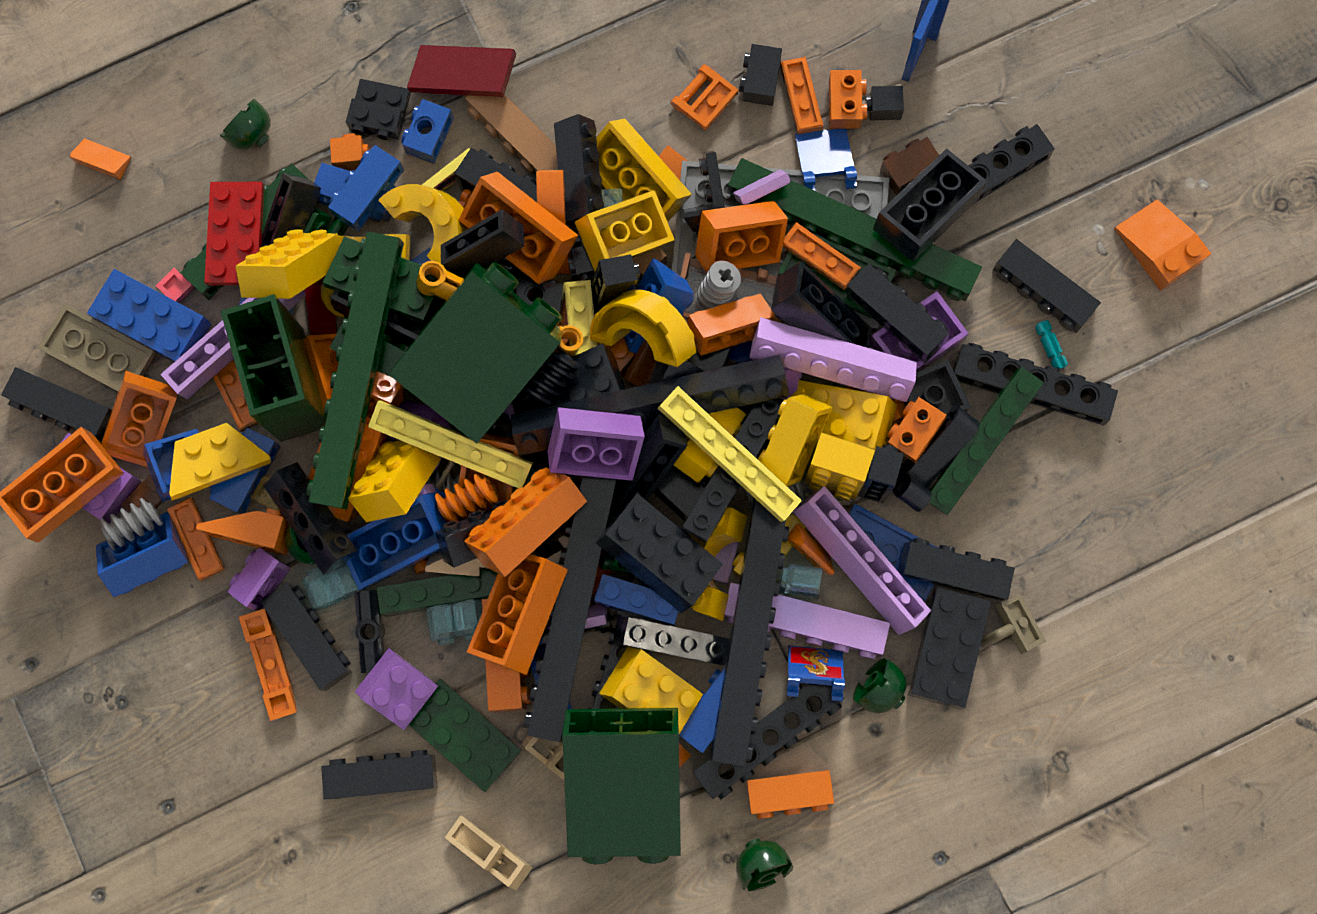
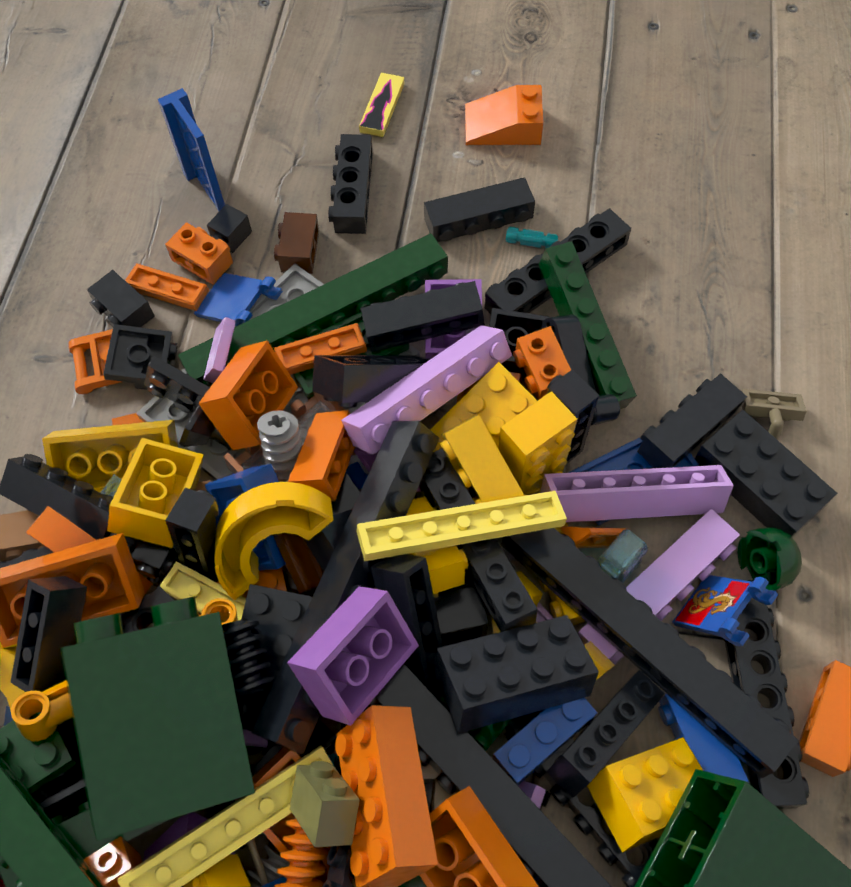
camera: 60 degrees left, 15 degrees down
(496, 489) = (324, 805): none -> olive brick
(727, 127) = (133, 350): none -> black plate
(929, 205) = (347, 234): black brick -> none
(1104, 130) = (381, 105): none -> tile

